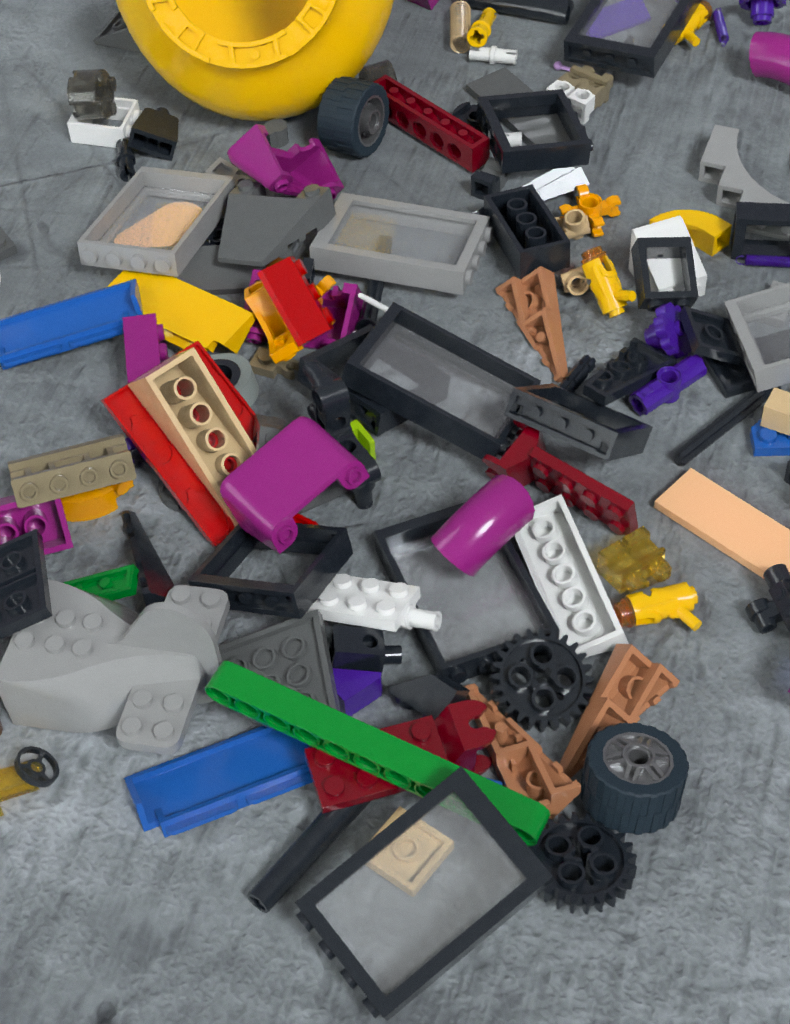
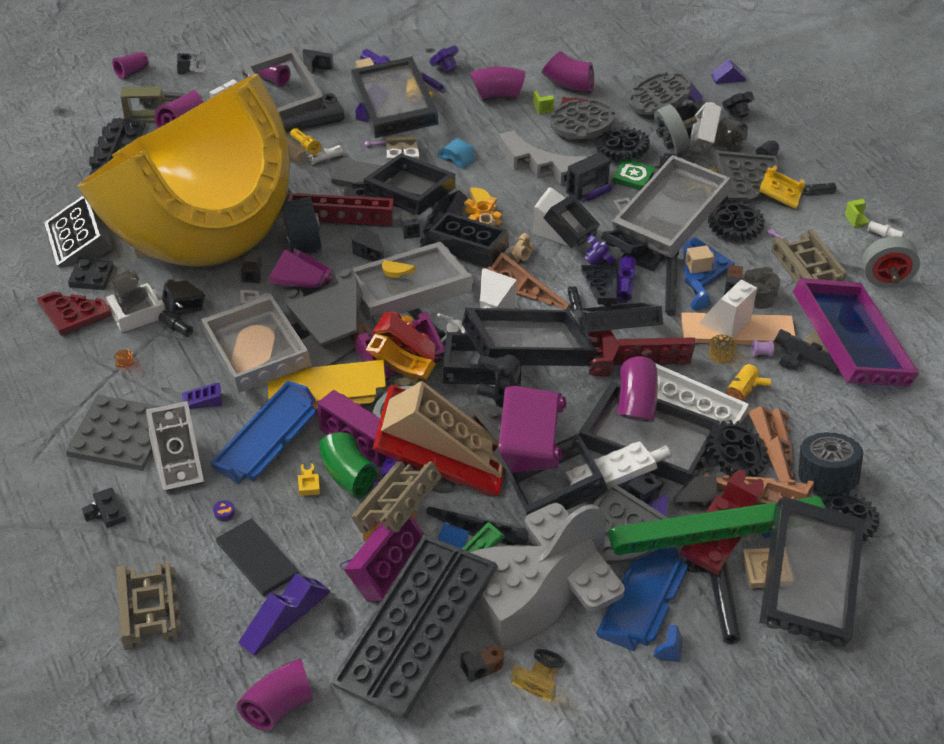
camera: 45 degrees left, 5 degrees down
(37, 168) = (123, 358): none -> clear orange plate
(43, 93) = (72, 311): none -> dark red plate
(45, 405) = (308, 482): none -> yellow plate
(63, 256) = (209, 396): none -> dark purple slope
(83, 413) = (347, 464): none -> green brick
(104, 555) = (453, 535): none -> blue tile
(116, 61) = (91, 274): none -> black plate
(182, 855) = (672, 649): none -> blue tile
(394, 219) = (395, 269): none -> yellow tile
(412, 180) = (368, 246): none -> black slope
(471, 312) = (497, 290): none -> white slope
(605, 282) = (541, 244): yellow piece -> none
(613, 186) = (479, 195): none -> yellow tile
(632, 561) = (708, 370): clear yellow hips -> none
(647, 126) = (459, 152): none -> dark azure cylinder
(696, 544) = (722, 350): none -> clear yellow wheel
(705, 229) = (537, 192): yellow arch -> none
(740, 464) = (702, 298): none -> blue tile
(740, 500) = (732, 310): none -> white slope
(742, 576) = (762, 348): none -> lavender bush

